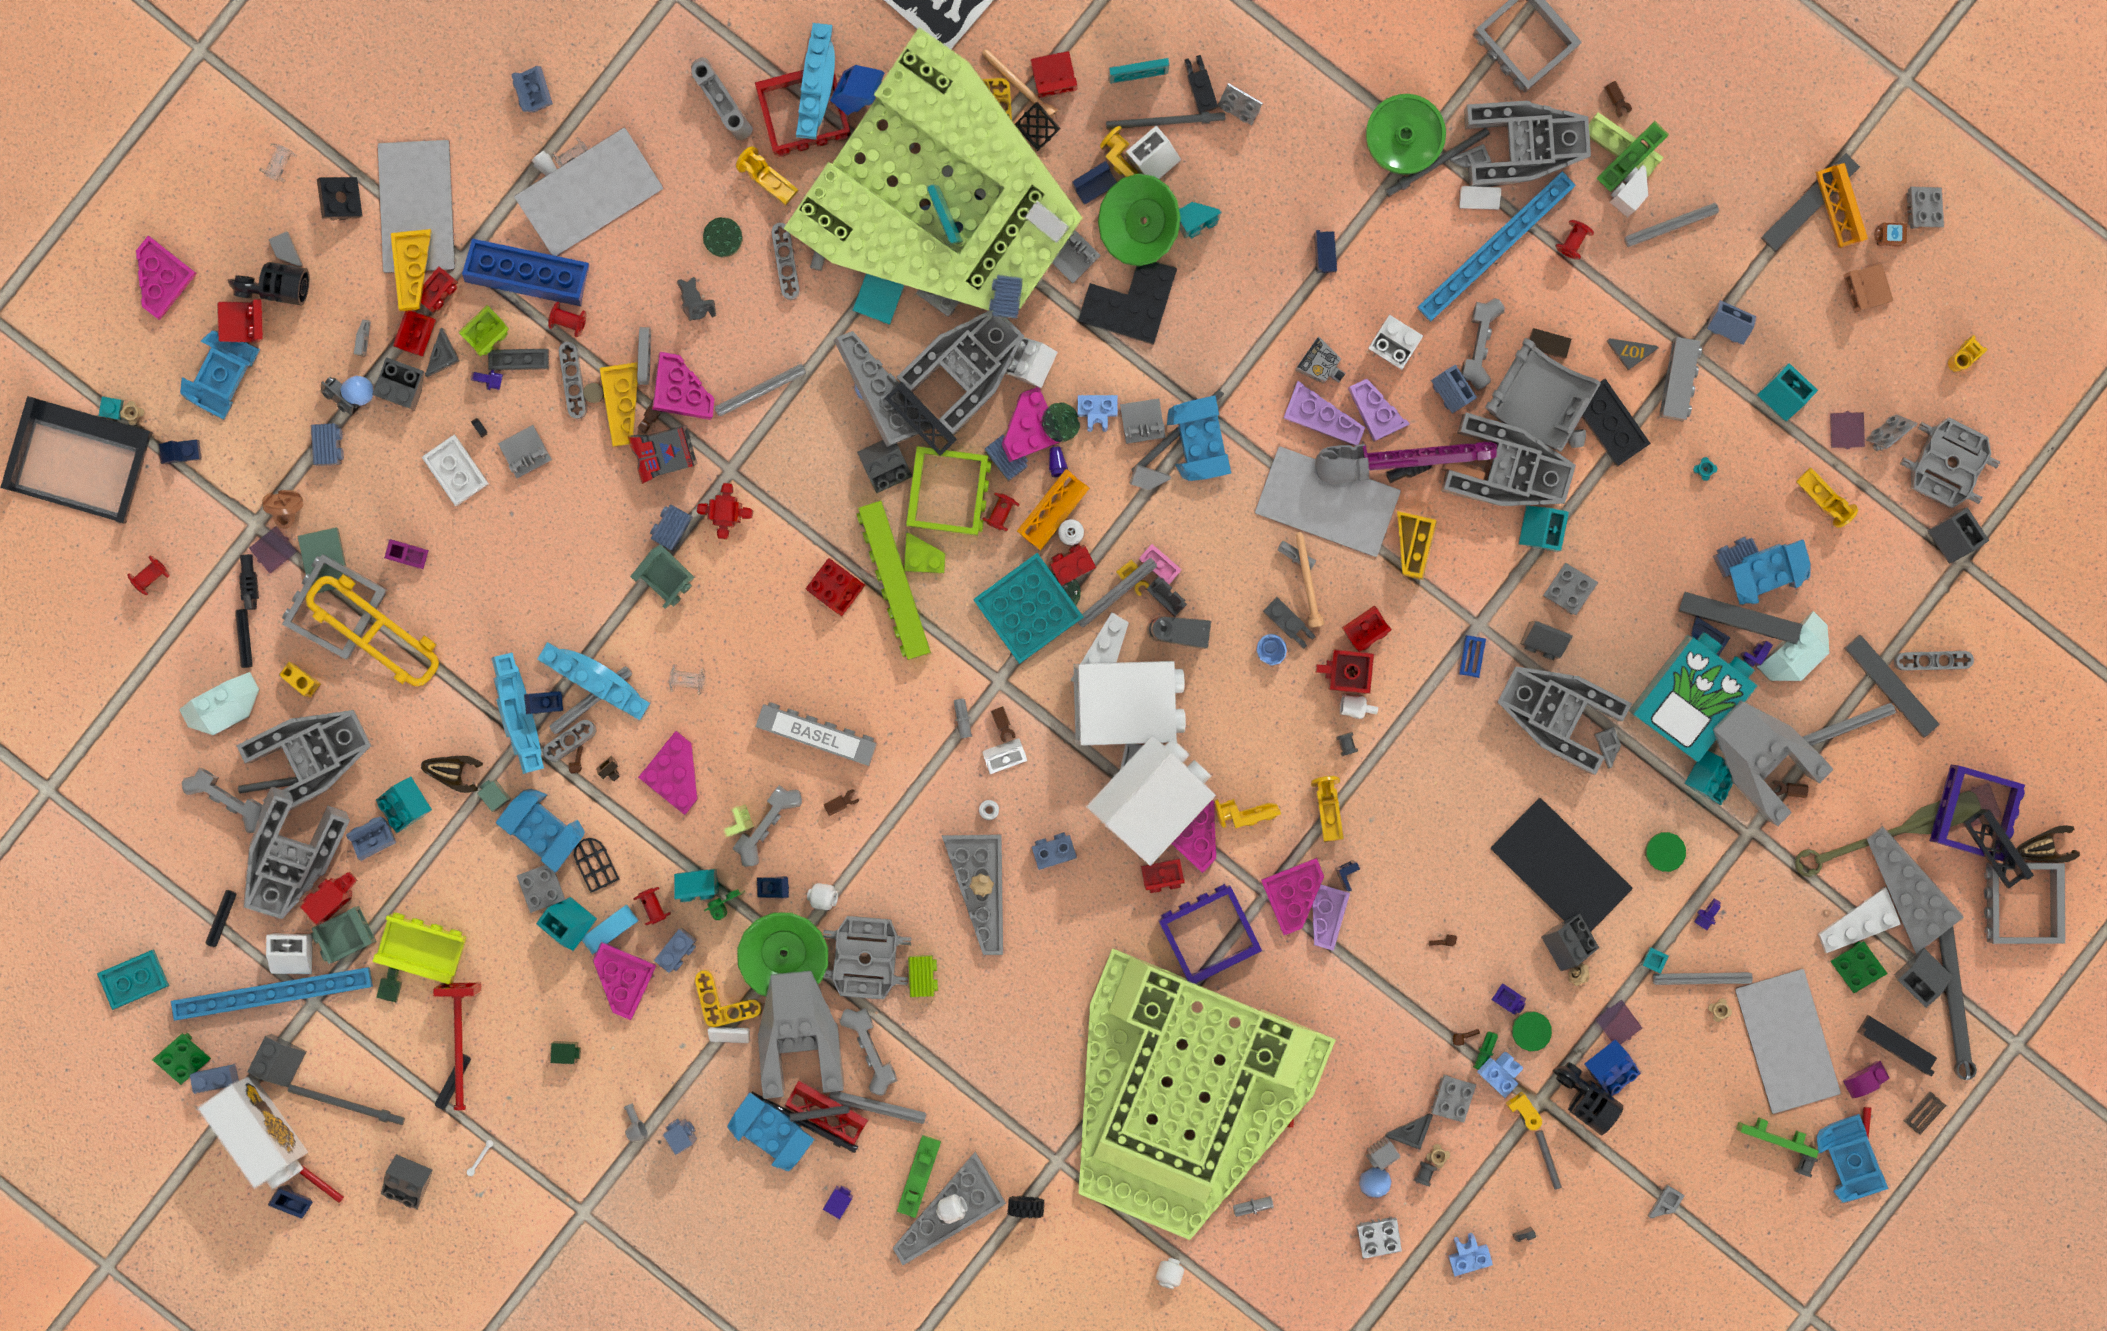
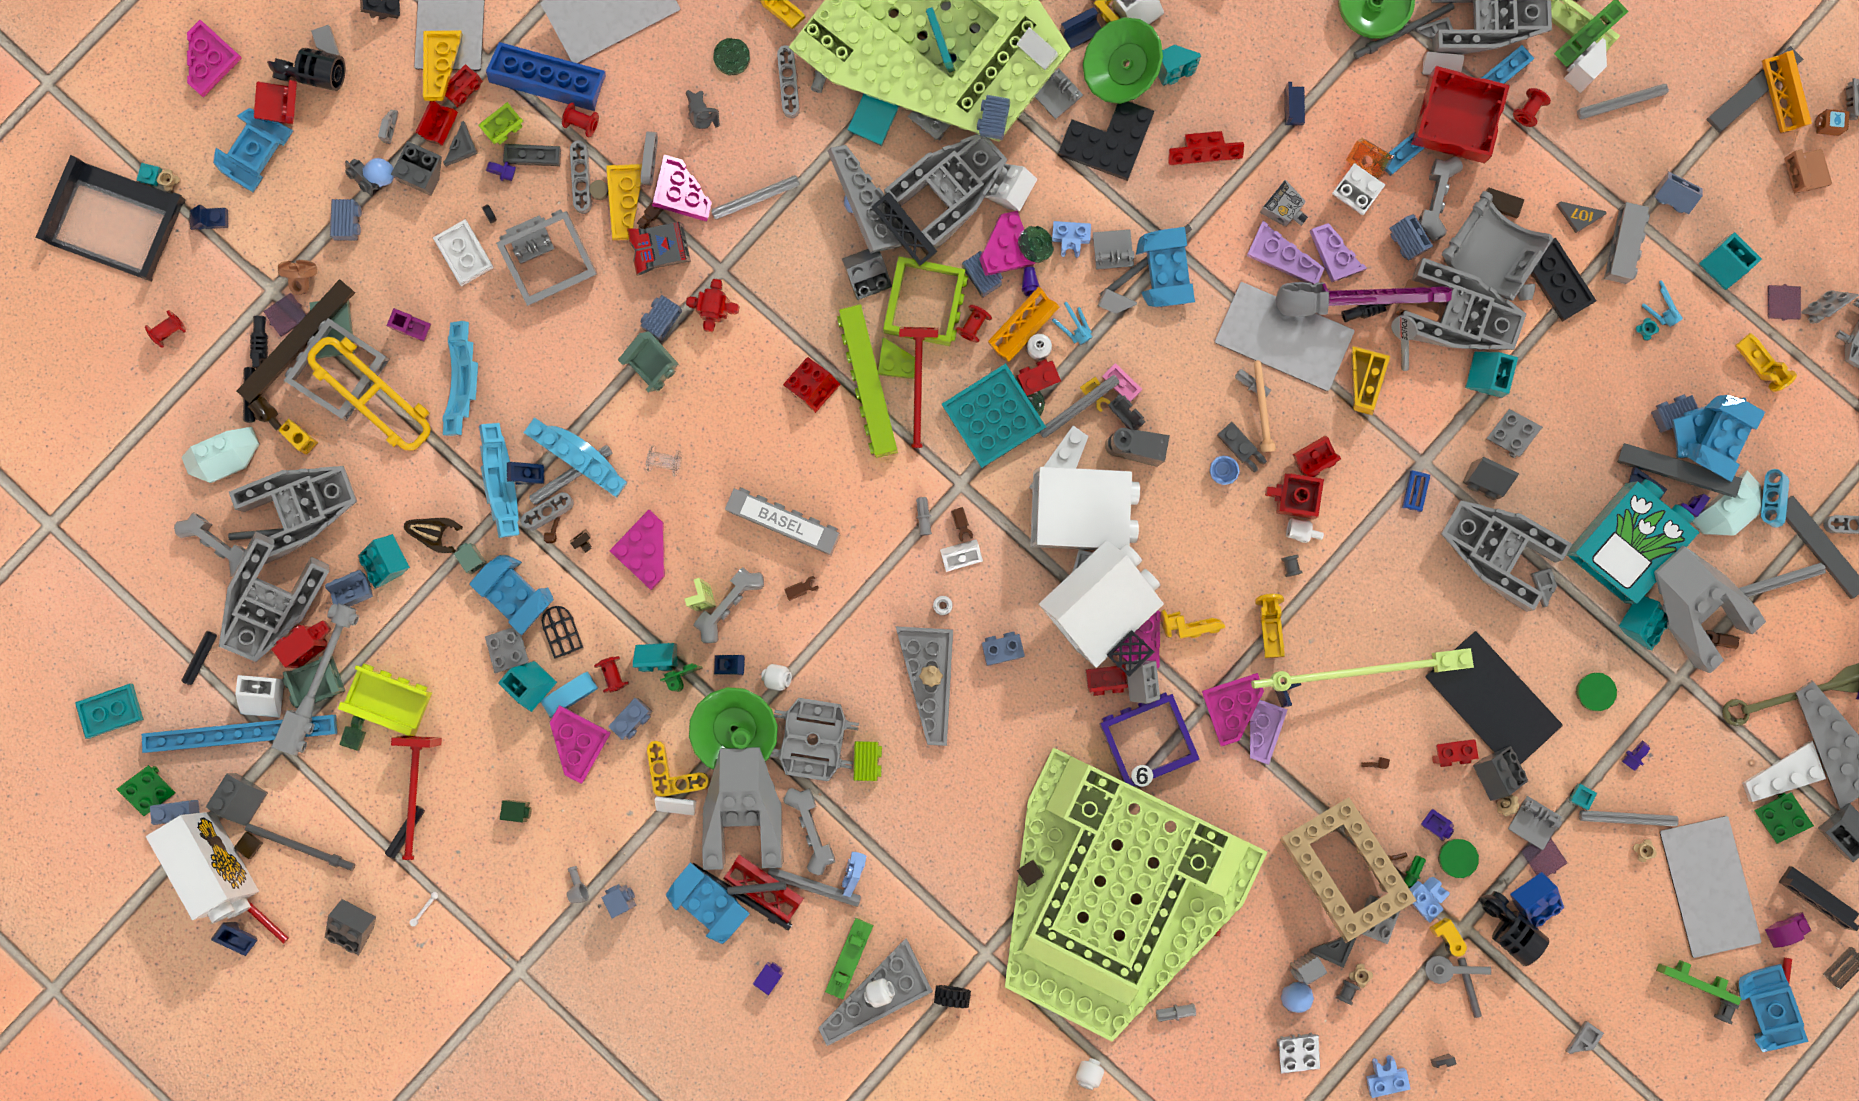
camera: 15 degrees right, 5 degrees down
(263, 657) = (265, 412): none -> dark brown piece
(288, 580) = (295, 342): none -> dark brown tile
(292, 1106) = (248, 845): none -> dark brown tile
(333, 979) = (298, 723): none -> light grey bar
(468, 608) = (463, 378): none -> medium azure piece
(561, 501) = (539, 224): none -> light grey window
(791, 963) = (740, 738): none -> bright green tile
(917, 1086) = (854, 869): none -> light blue plate
(944, 531) = (918, 335): none -> red tile
(1097, 1077) = (1030, 872): none -> dark brown tile
(1115, 514) = (1082, 333): none -> medium azure plant
(1174, 850) = (1119, 664): none -> black window
(1199, 875) = (1144, 683): none -> light grey hinge
(1204, 971) = (1142, 775): none -> white sticker
(1232, 305) = (1205, 148): none -> red bracket
(1416, 307) = (1380, 158): none -> clear orange brick
(1420, 1106) = (1346, 922): none -> tan brick
(1451, 492) = (1405, 329): none -> light grey piece
(1498, 255) = (1460, 114): none -> red tile
(1505, 833) = (1441, 662): none -> yellowish green bar
(1518, 1144) = (1441, 970): none -> light grey piece
(1523, 924) = (1457, 751): none -> red bracket
(1607, 990) = (1535, 823): none -> light grey hinge
(1729, 452) = (1671, 315): none -> medium azure plant
(1784, 582) = (1726, 435): none -> dark azure piece
(1842, 649) = (1780, 505): none -> medium azure beam

